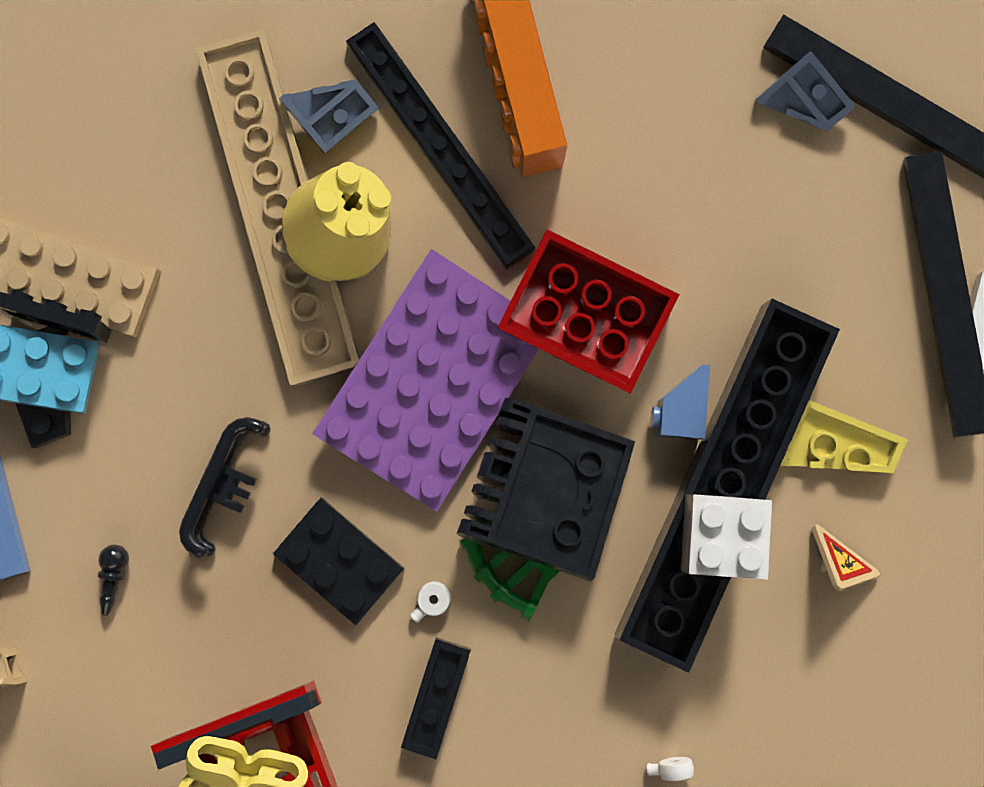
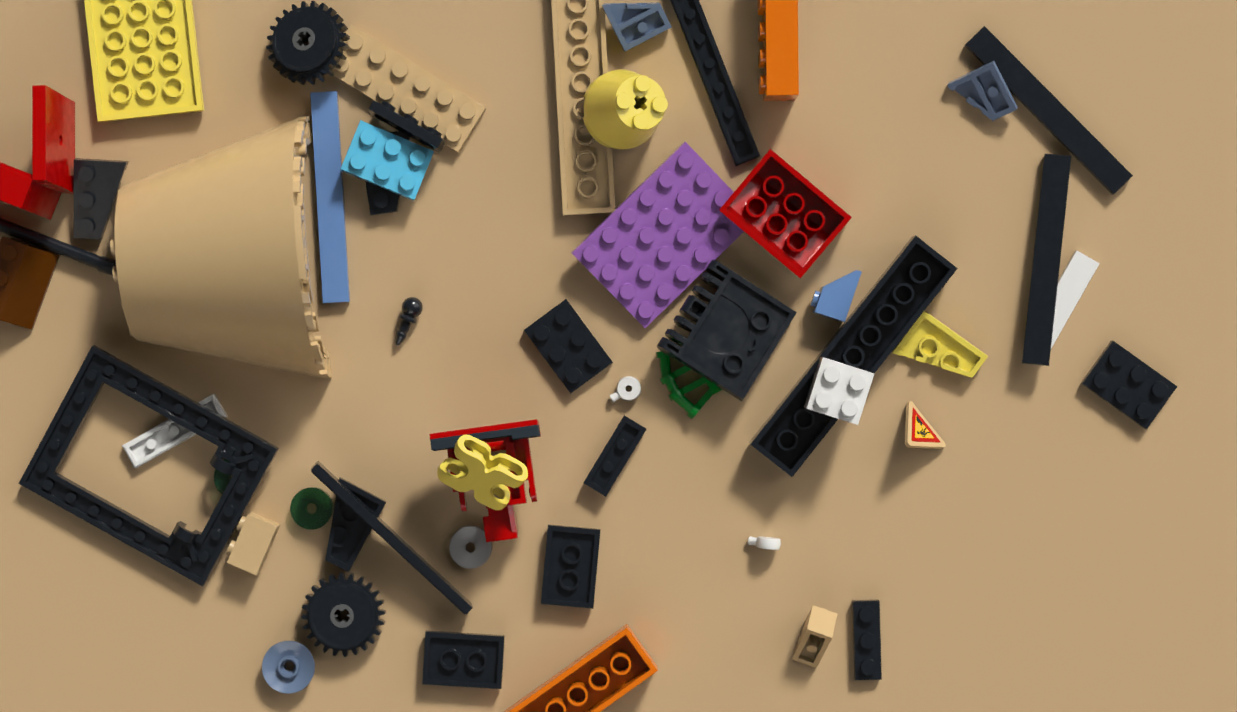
camera: 20 degrees right, 5 degrees up
(219, 485) = (499, 272): black piece -> none

